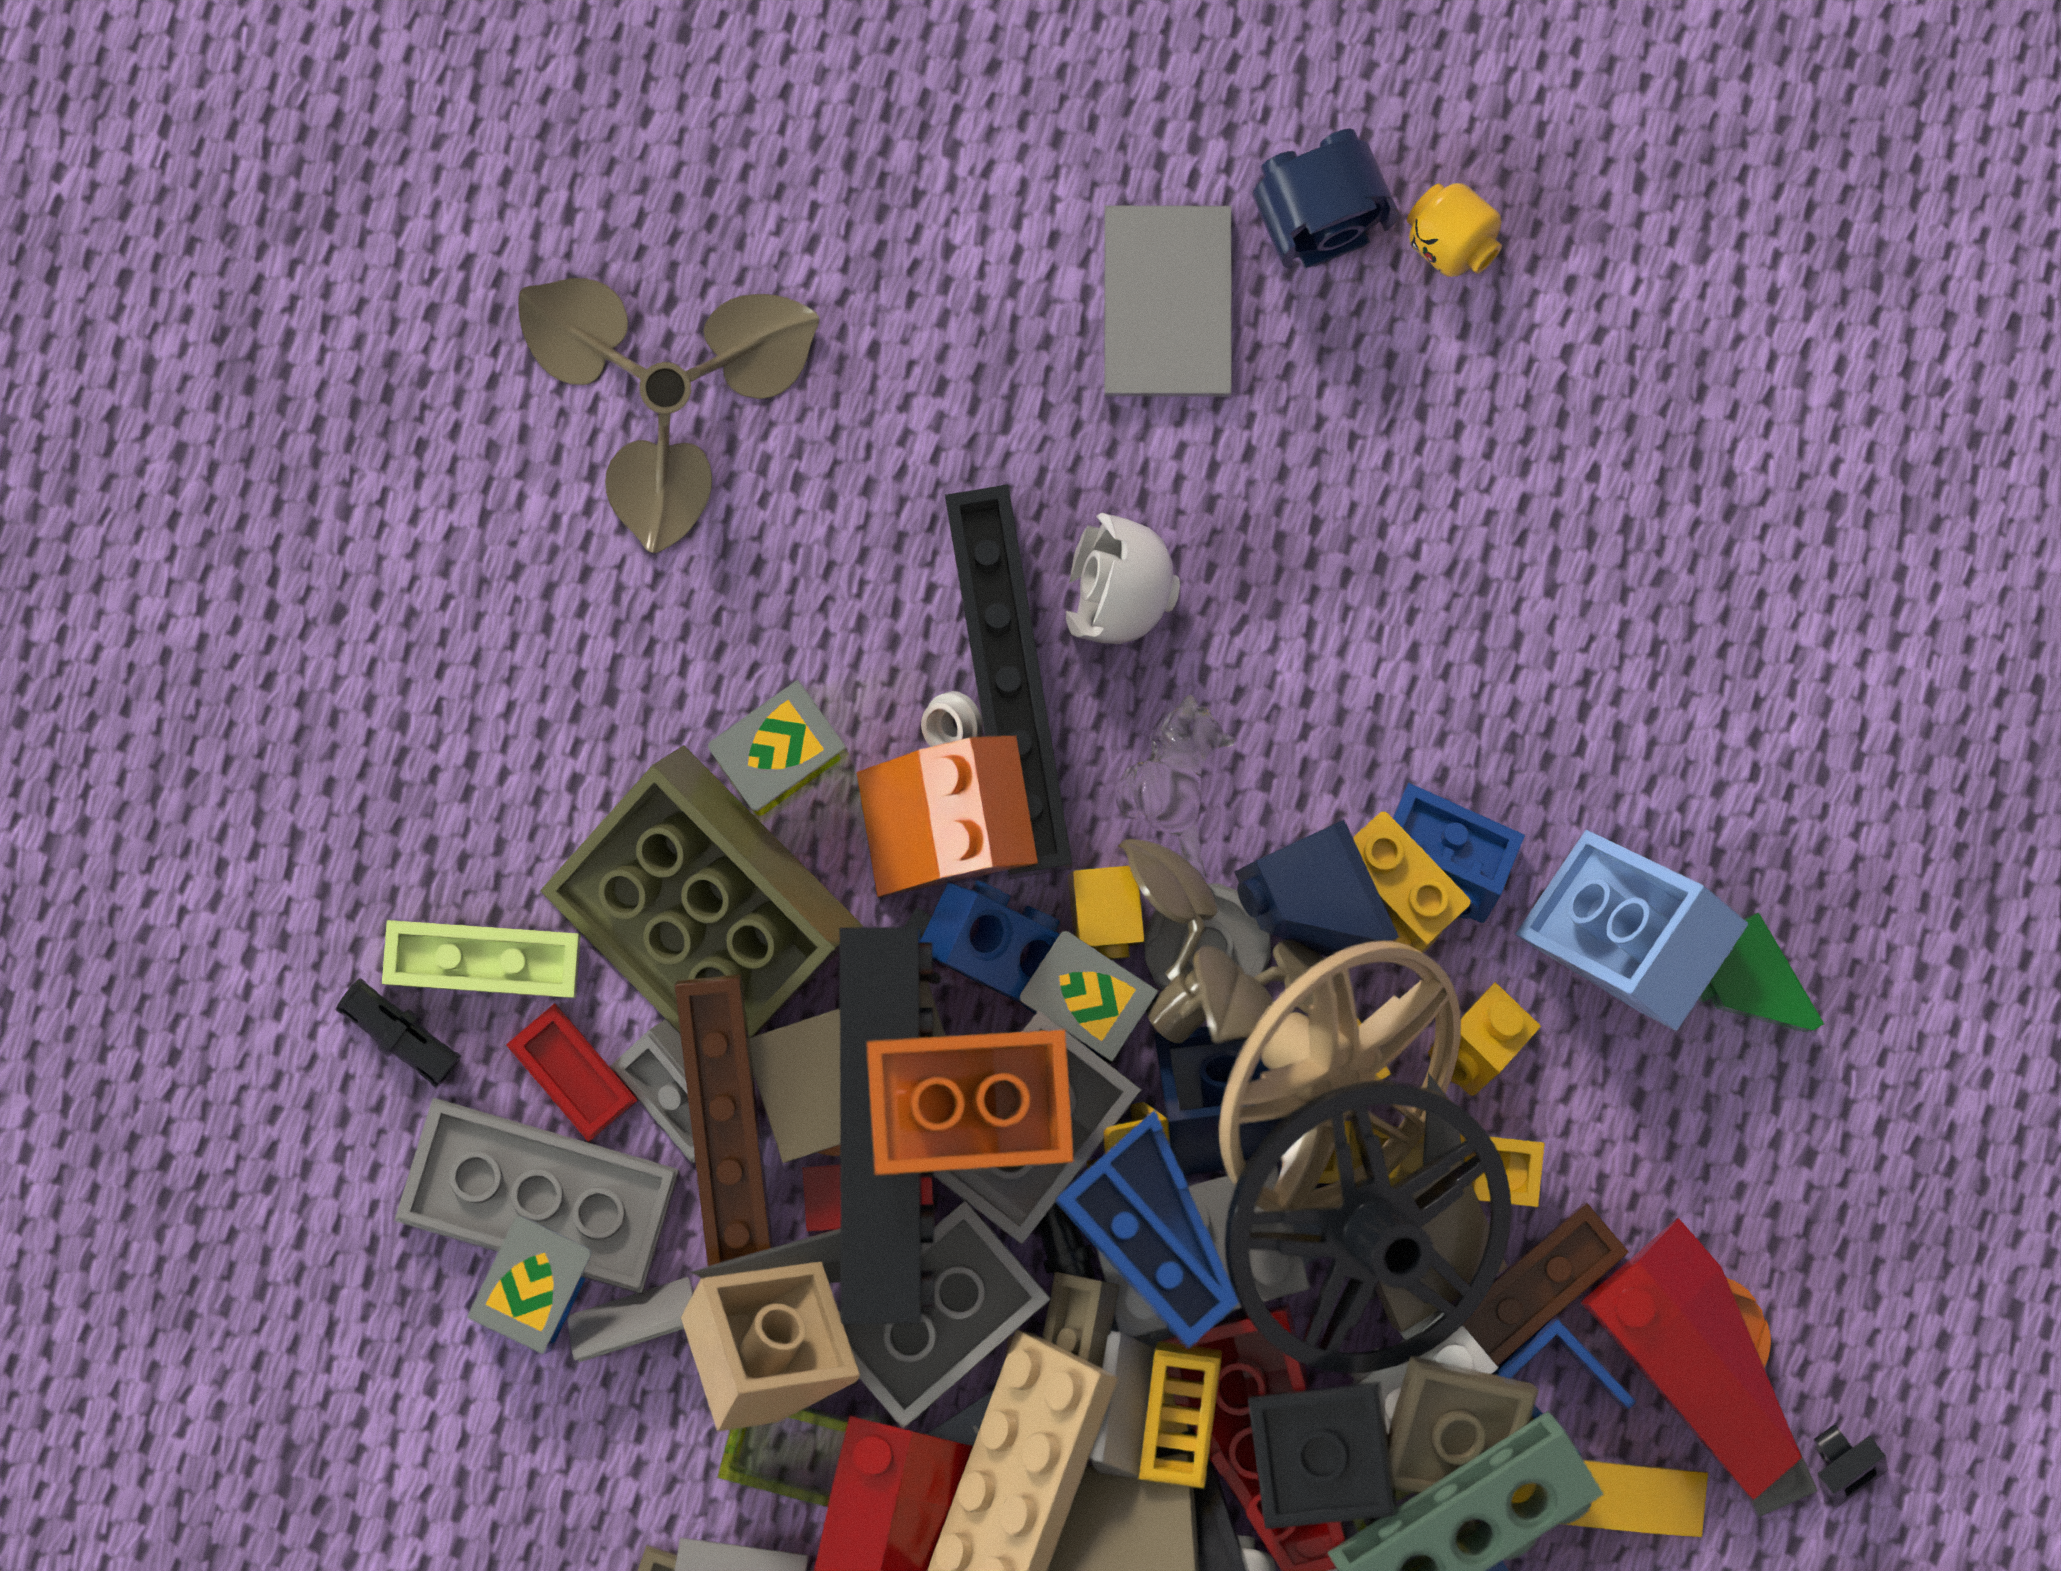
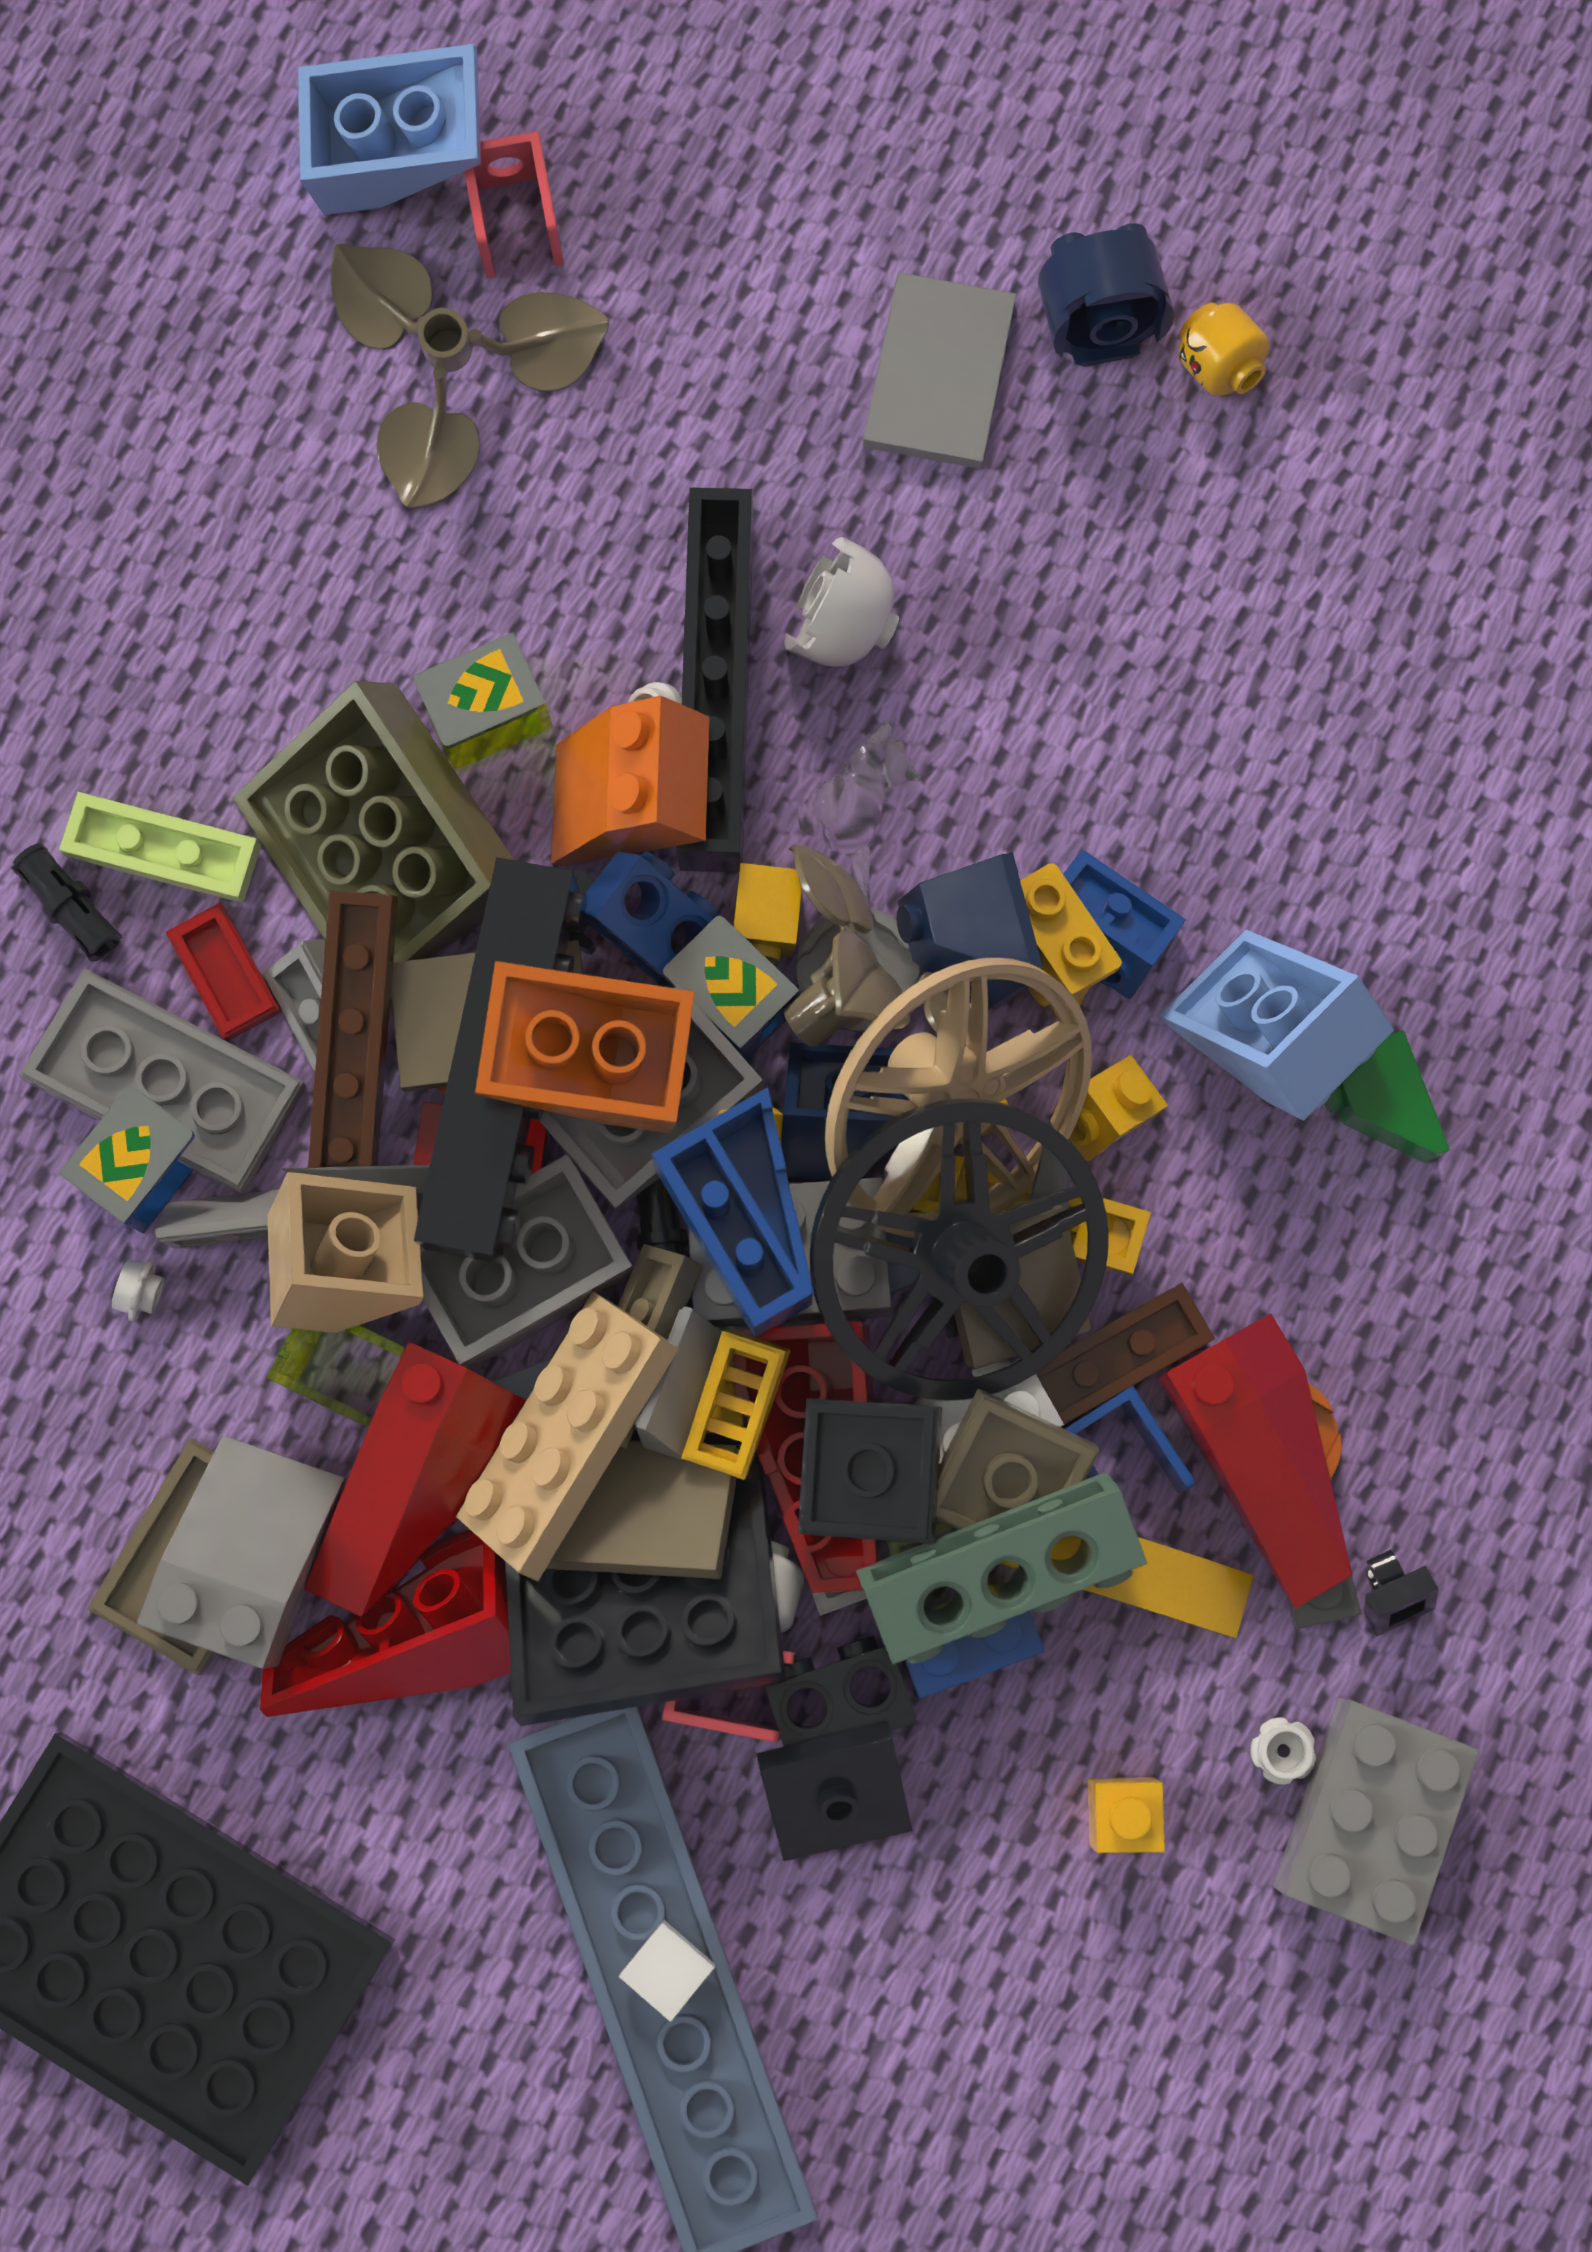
camera: 15 degrees right, 5 degrees down
(553, 158) = (387, 126): none -> light blue slope
(561, 1410) = (137, 1289): none -> white plate
(677, 167) = (531, 166): none -> coral piece

